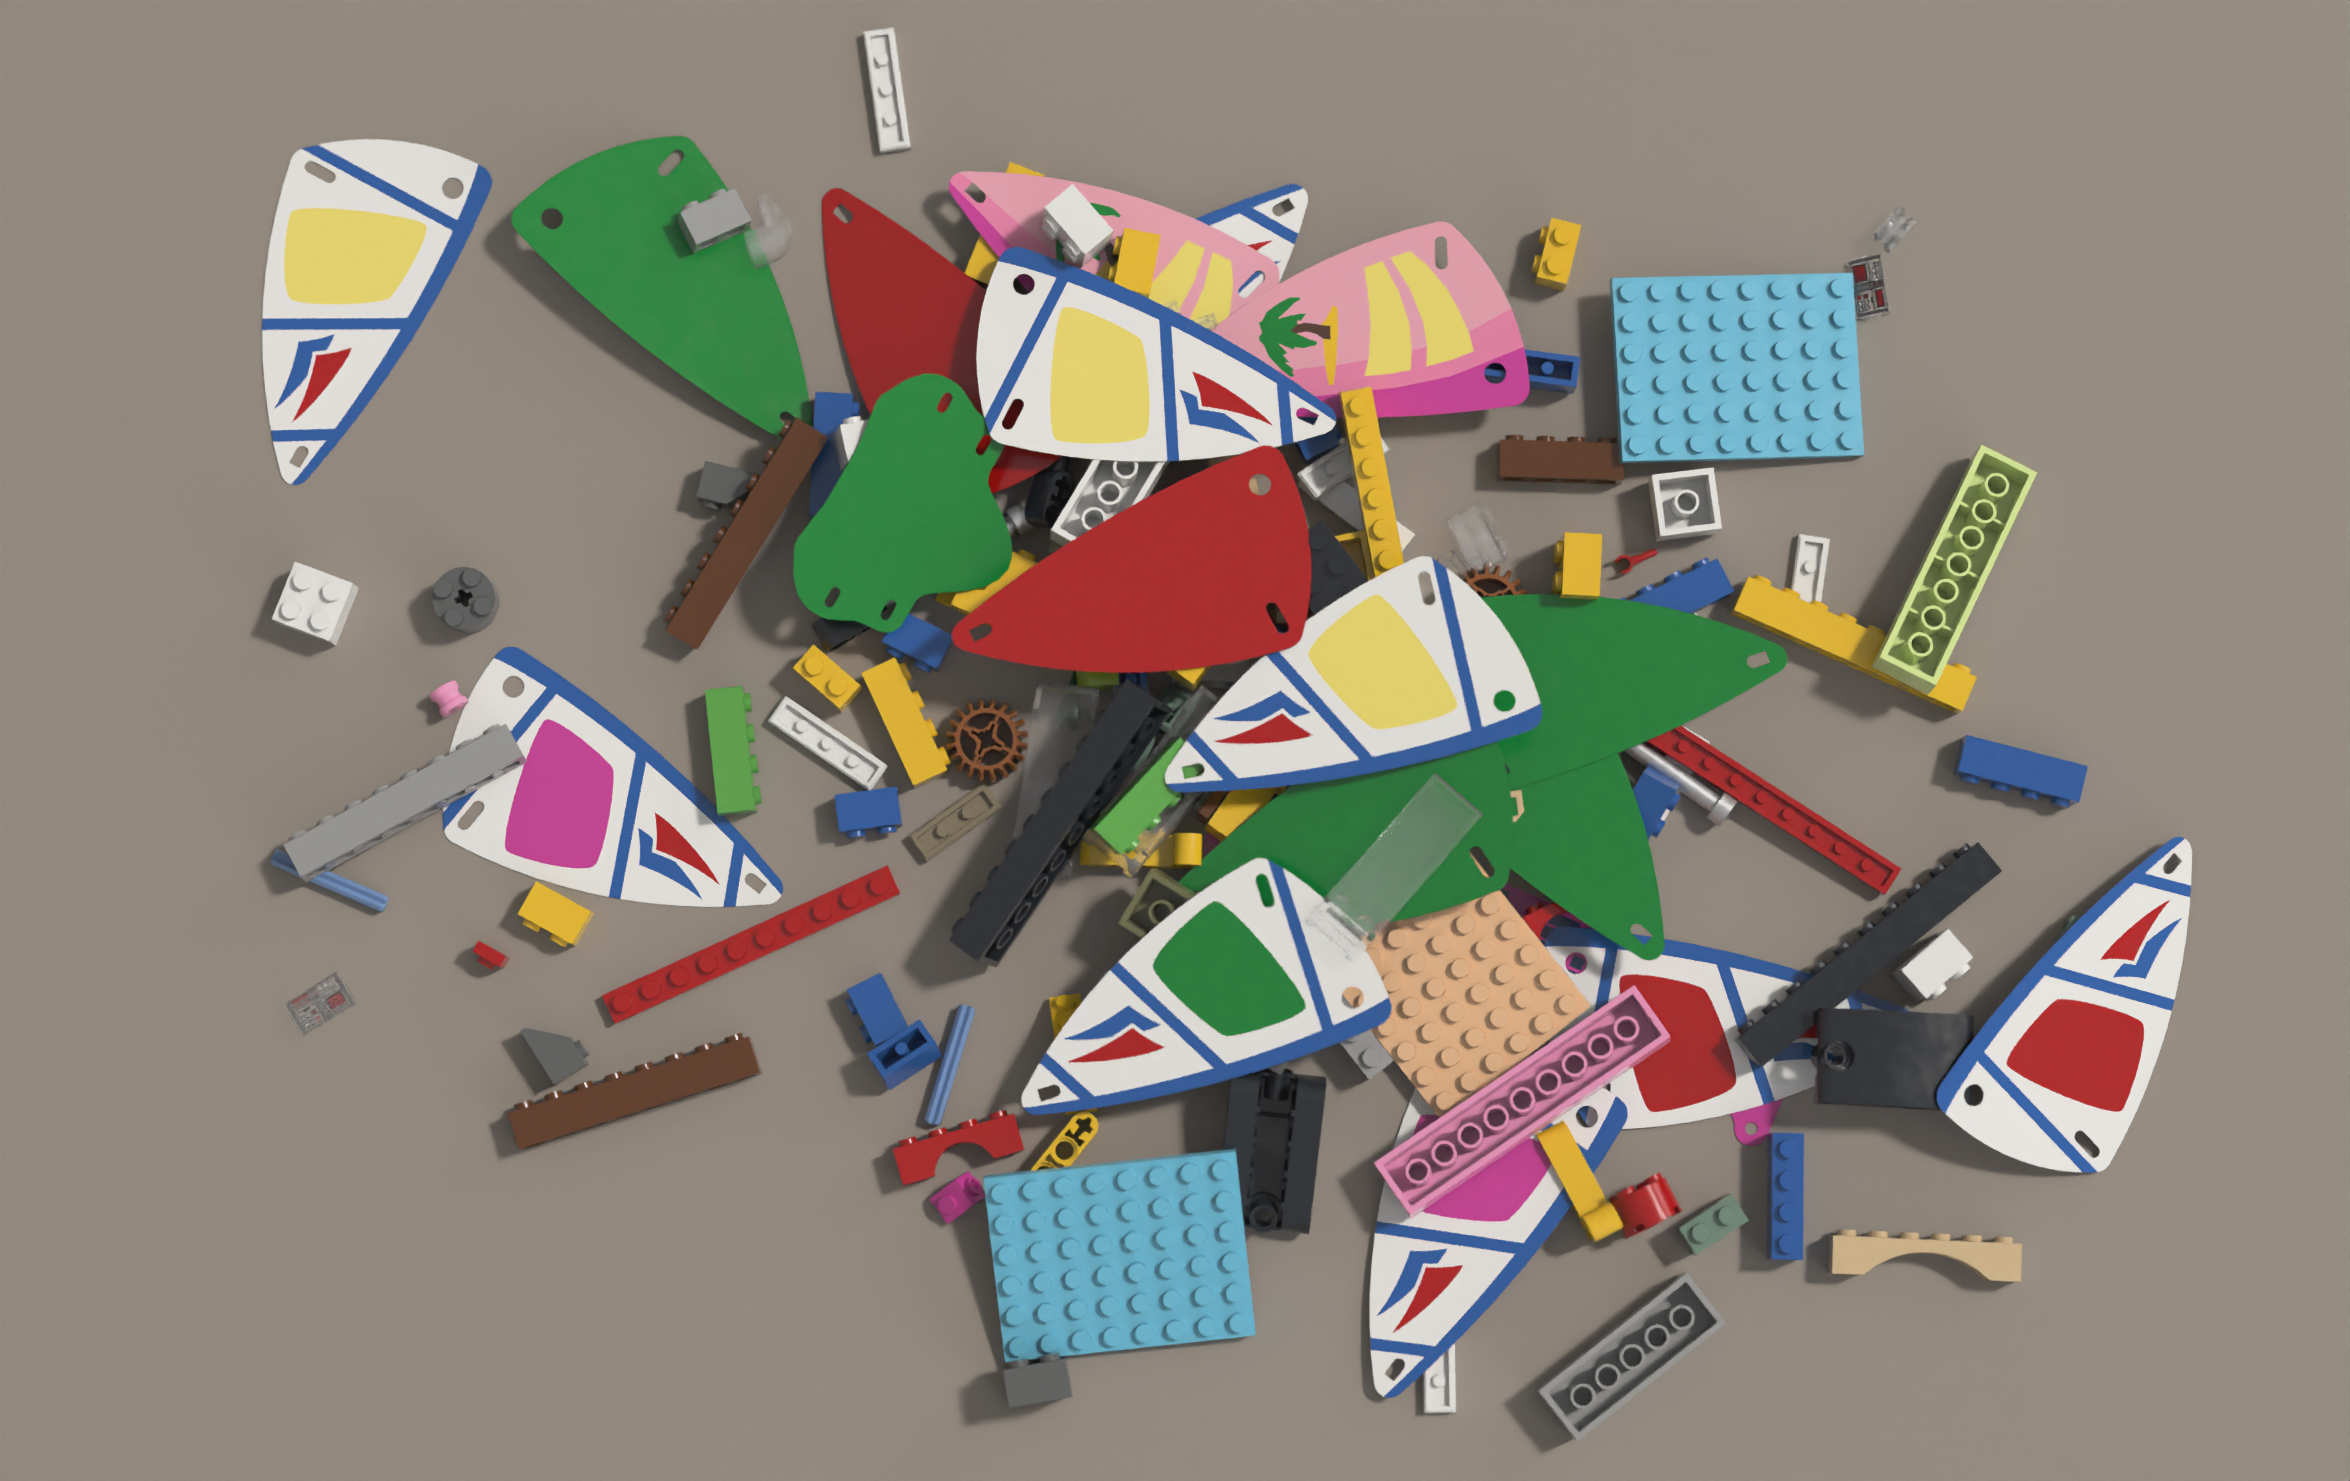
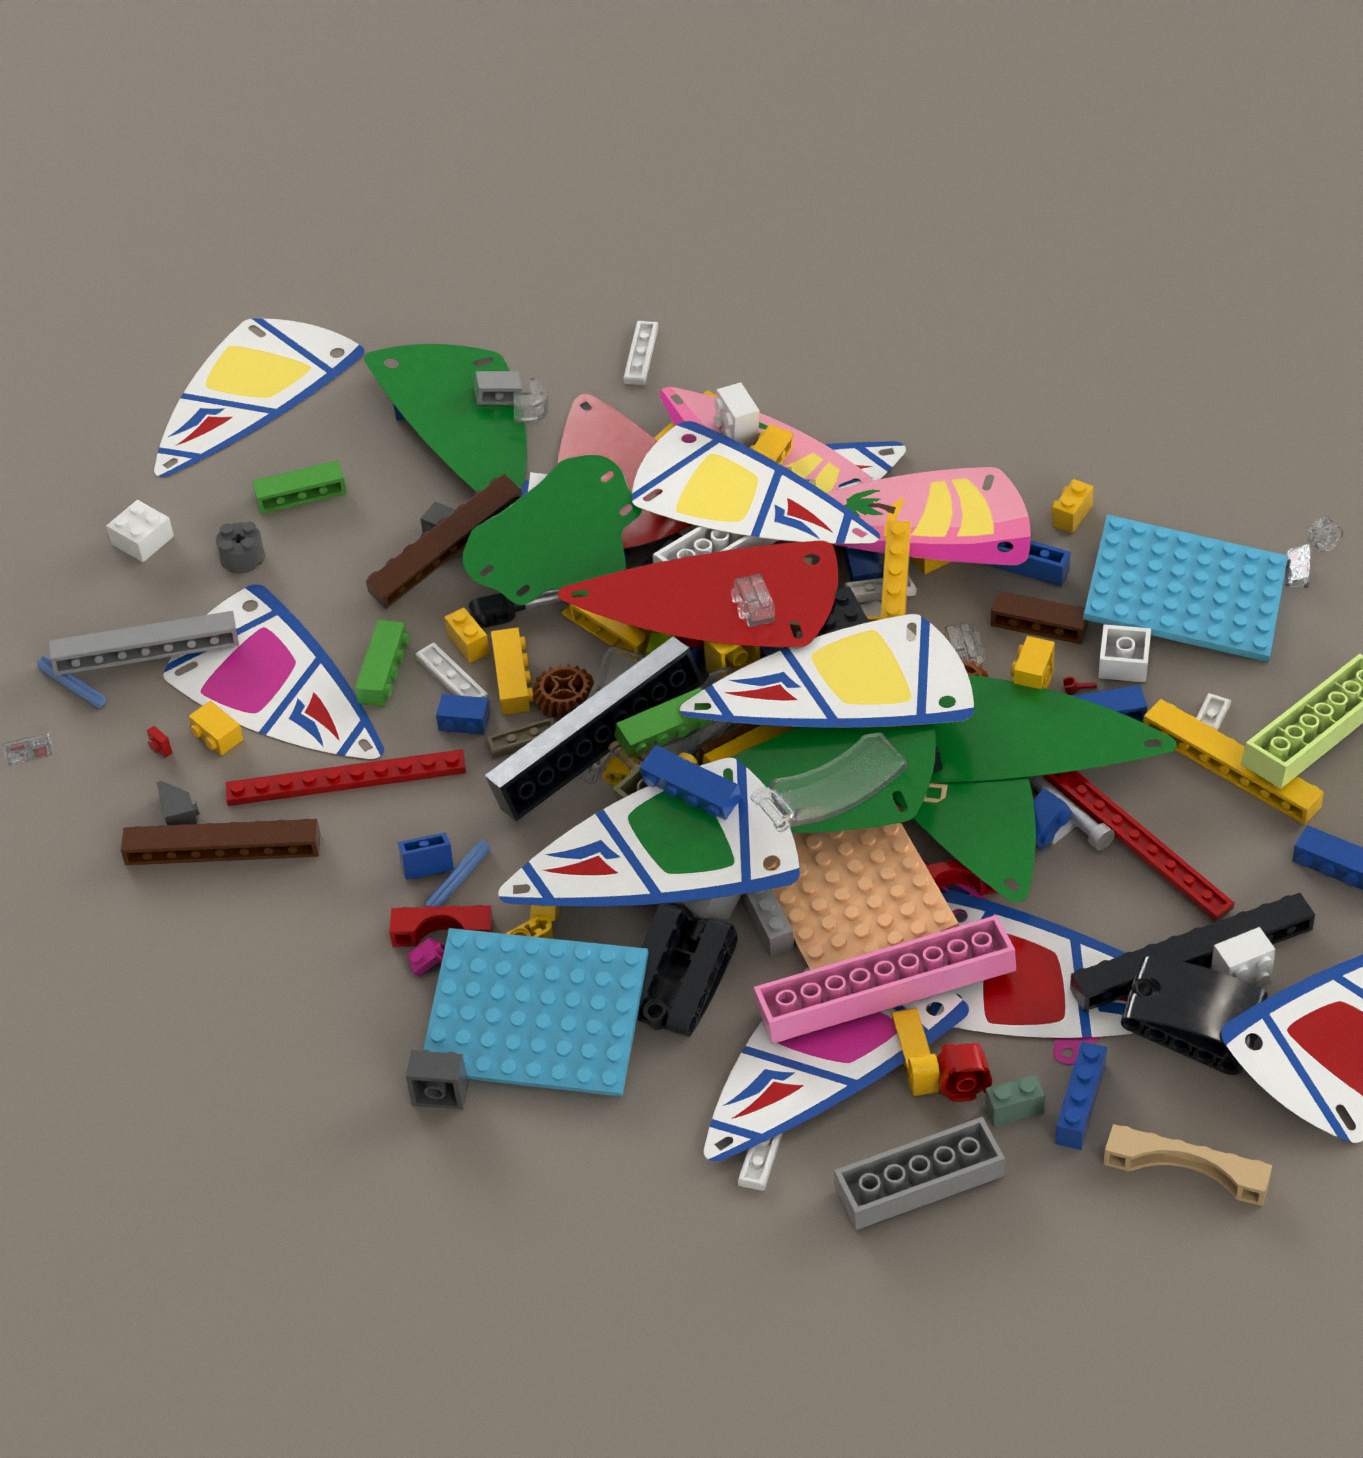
camera: 25 degrees right, 35 degrees down
(448, 699) = (202, 598): bright pink wheel -> none
(502, 467) = (299, 487): none -> bright green brick
(877, 1010) = (416, 821): blue brick -> none
(919, 642) = (540, 628): blue brick -> none
(1213, 594) = (753, 600): none -> clear brick
(1222, 914) = (690, 782): none -> blue brick

